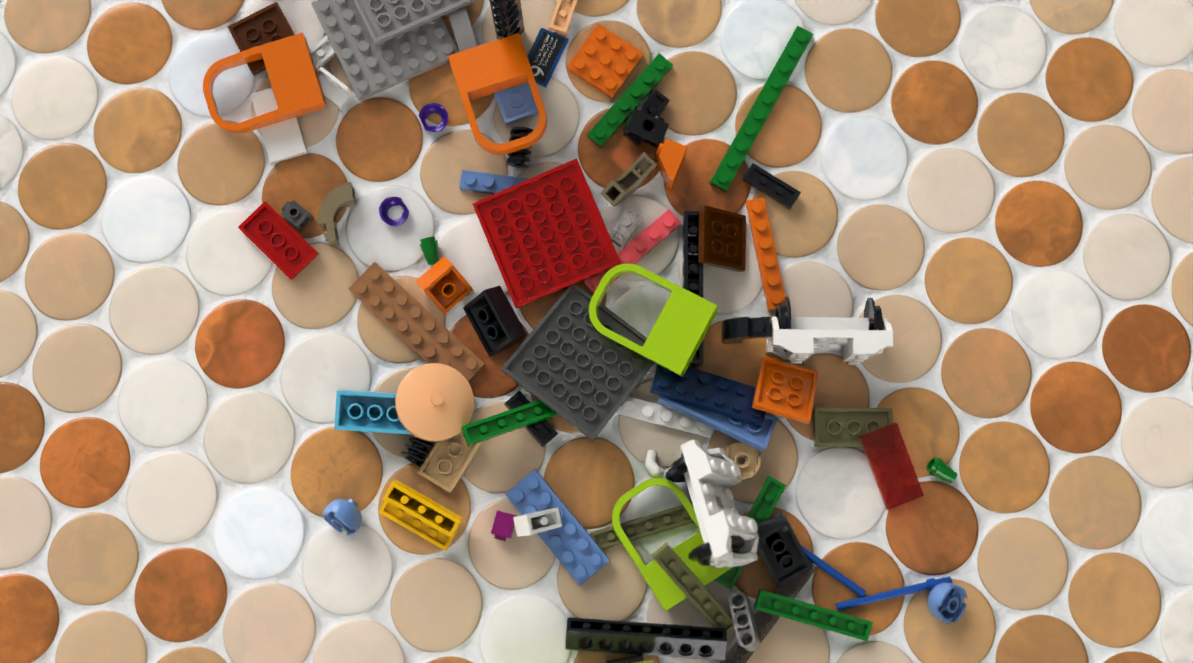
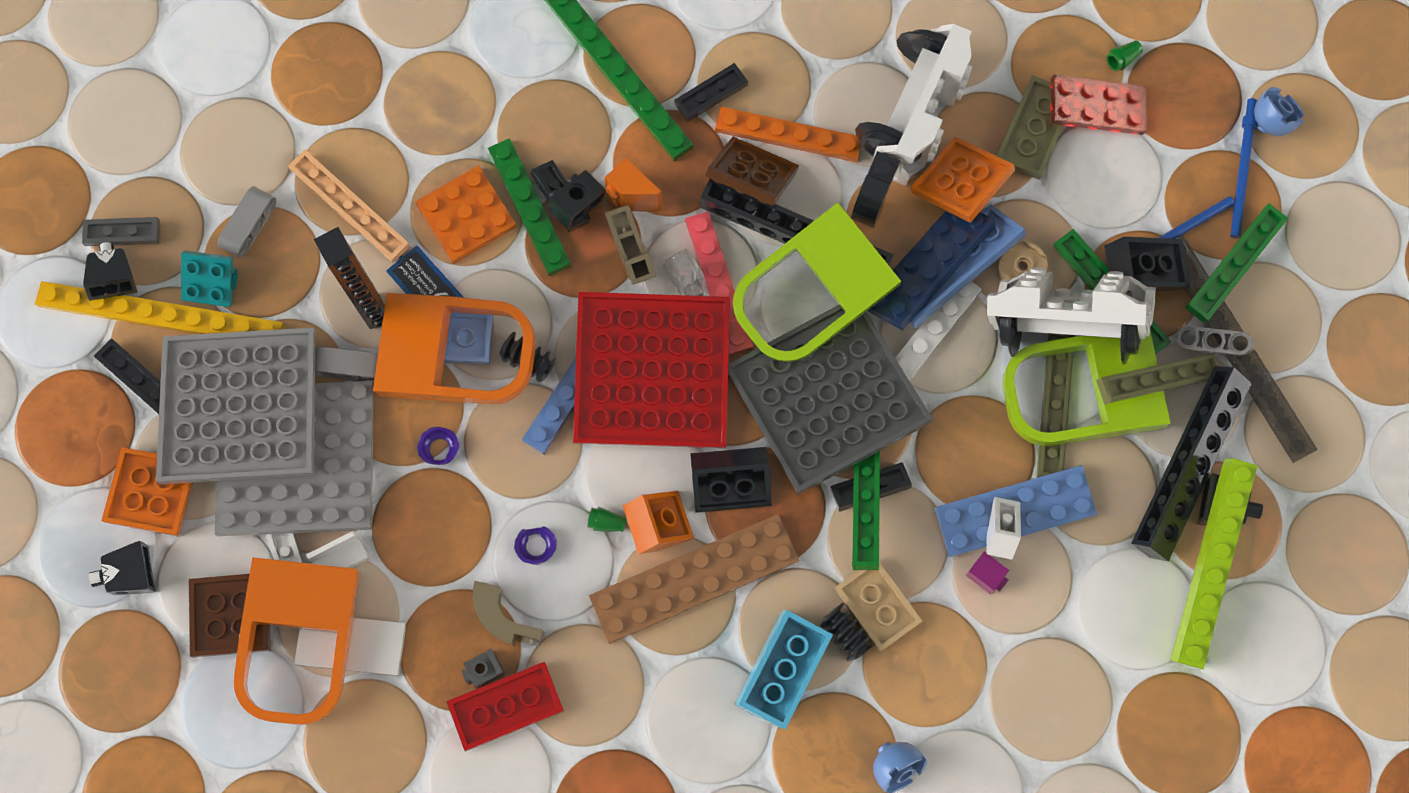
camera: 65 degrees left, 5 degrees down
(420, 514) = (935, 667): yellow brick -> none
(434, 402) = (804, 590): light nougat dish -> none
(651, 466) = (987, 370): white arm -> none

